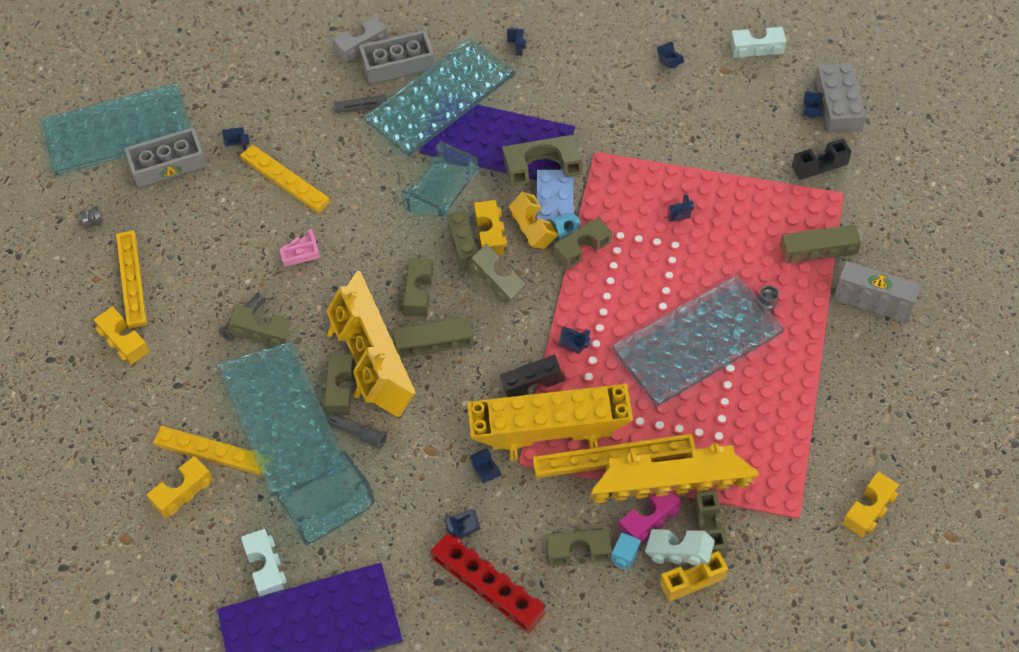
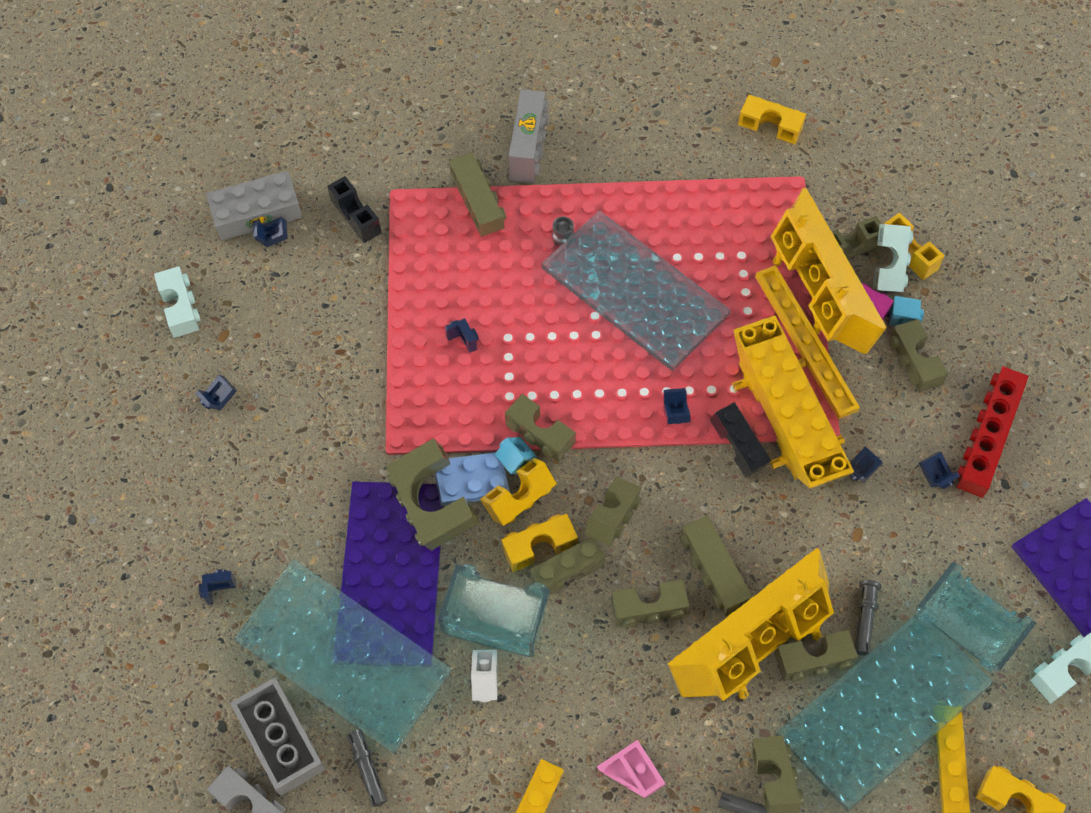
camera: 105 degrees left, 5 degrees up
(398, 174) = (484, 675): none -> white slope

